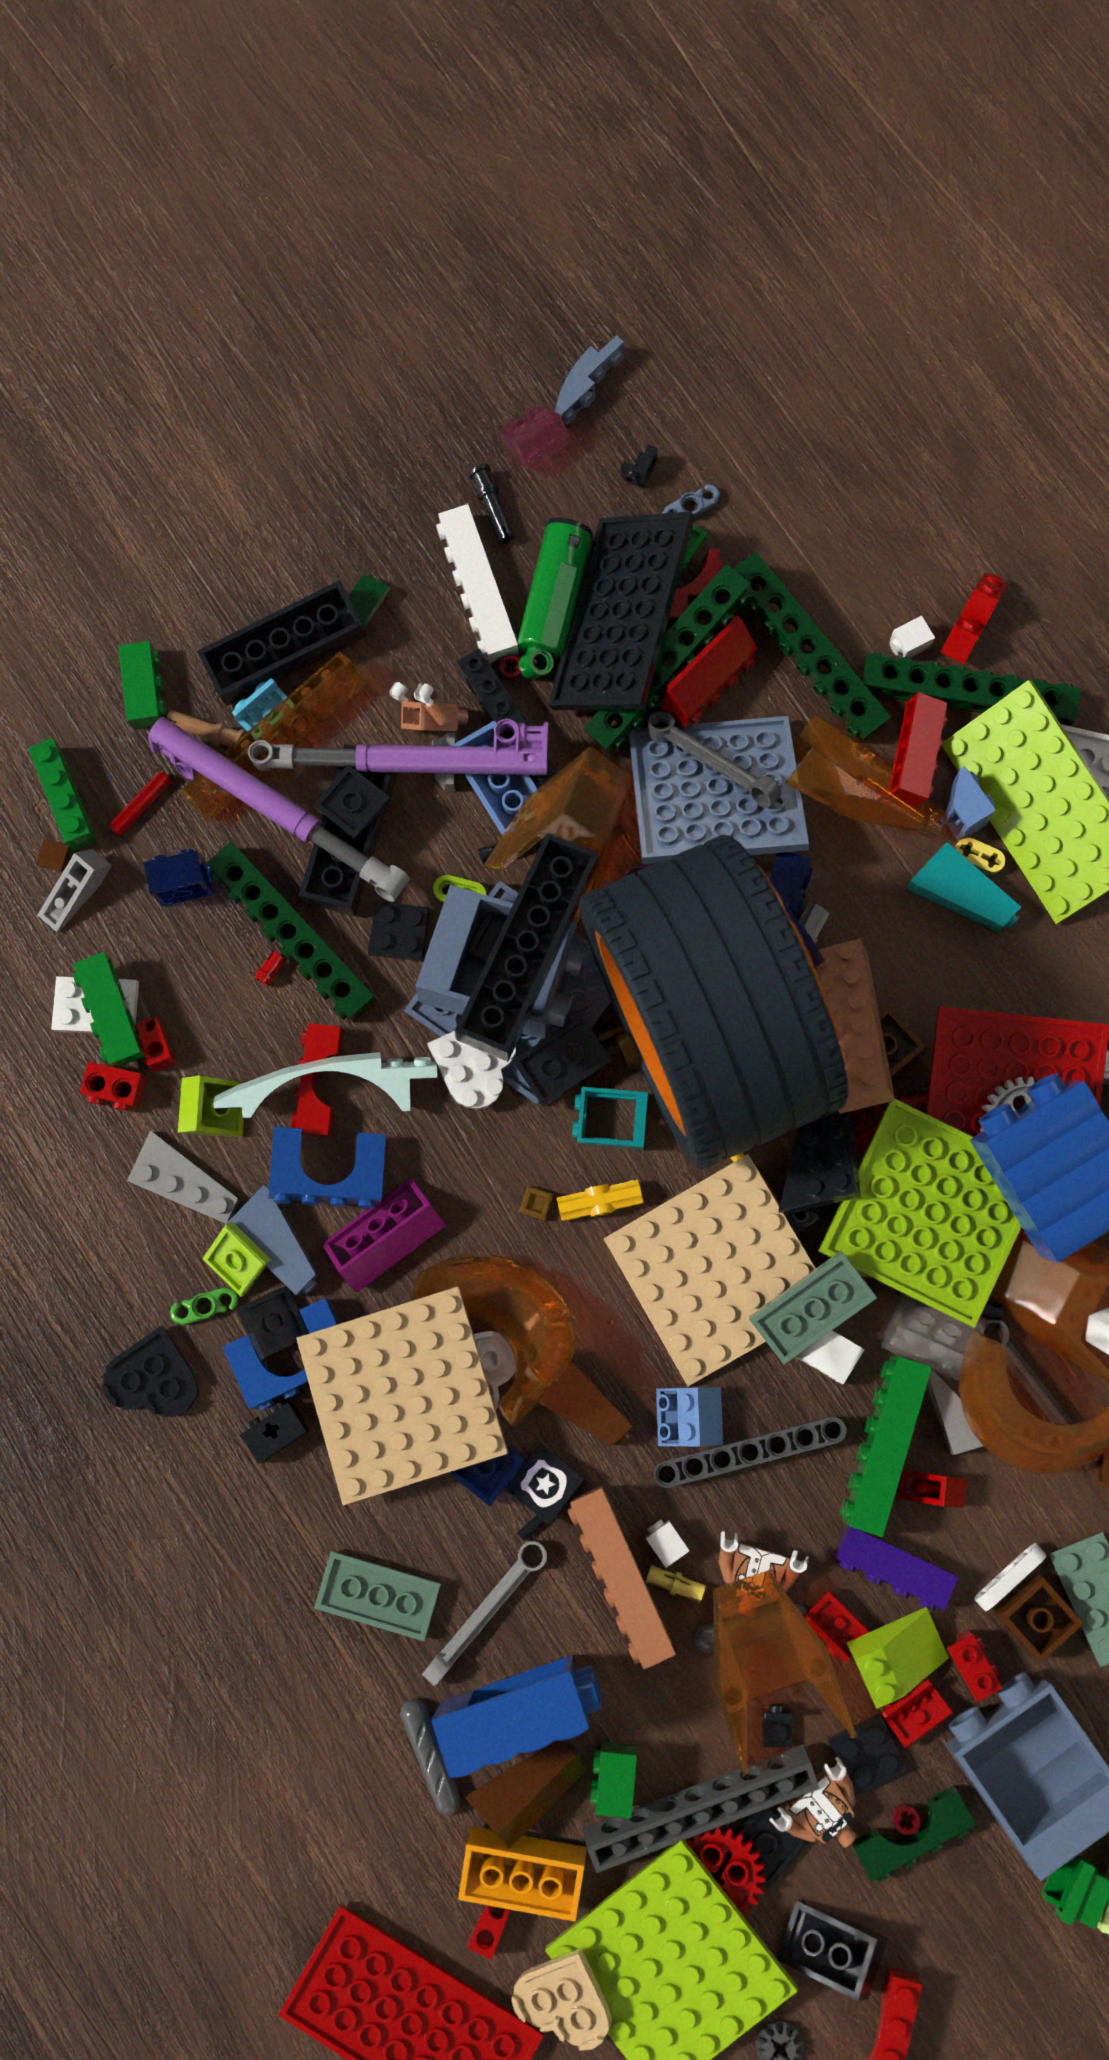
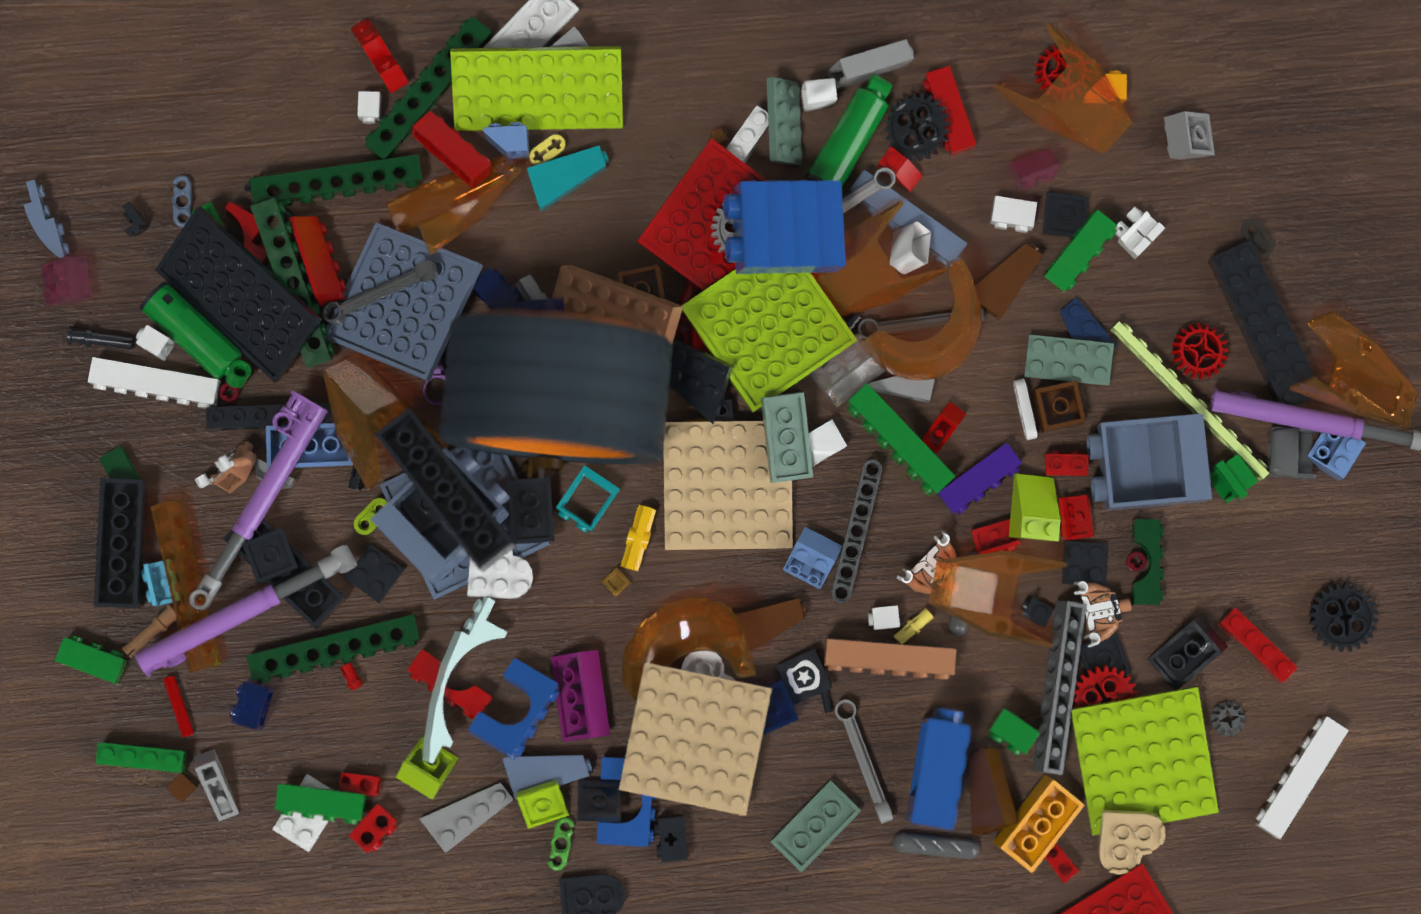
camera: 75 degrees left, 5 degrees up
(519, 558) = (154, 342): none -> white brick

